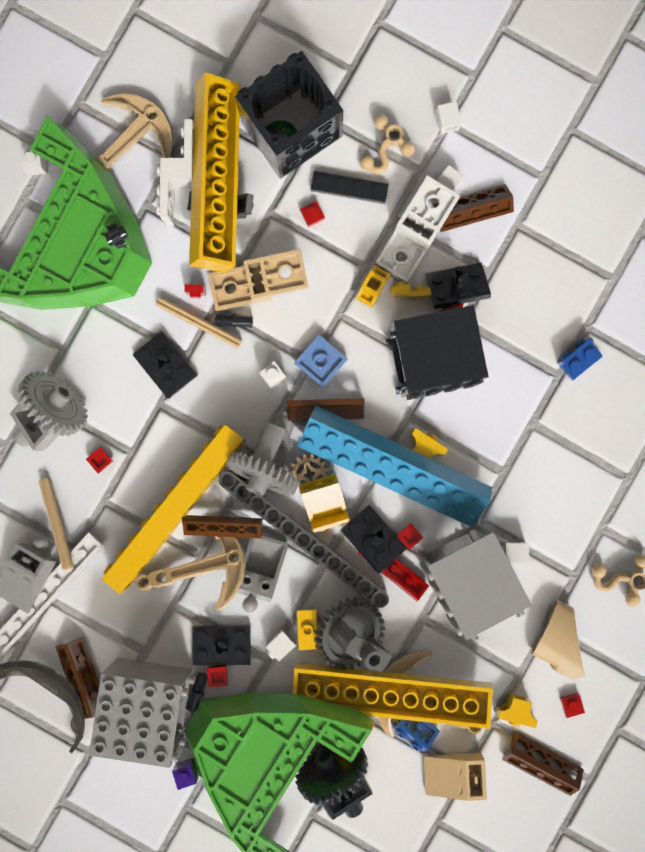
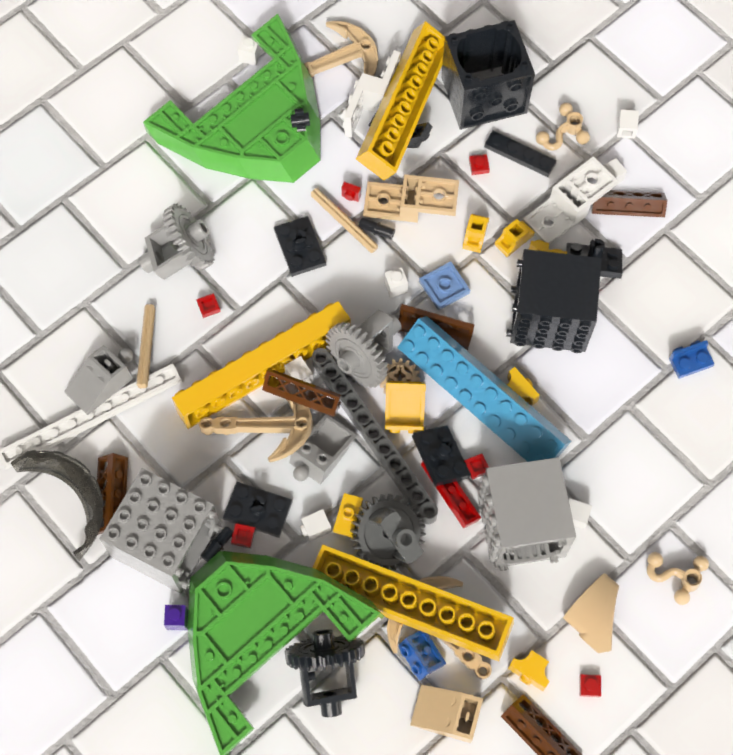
camera: 10 degrees right, 20 degrees down
(212, 501) = (299, 370): none -> white brick
(333, 293) = (475, 233): none -> yellow brick

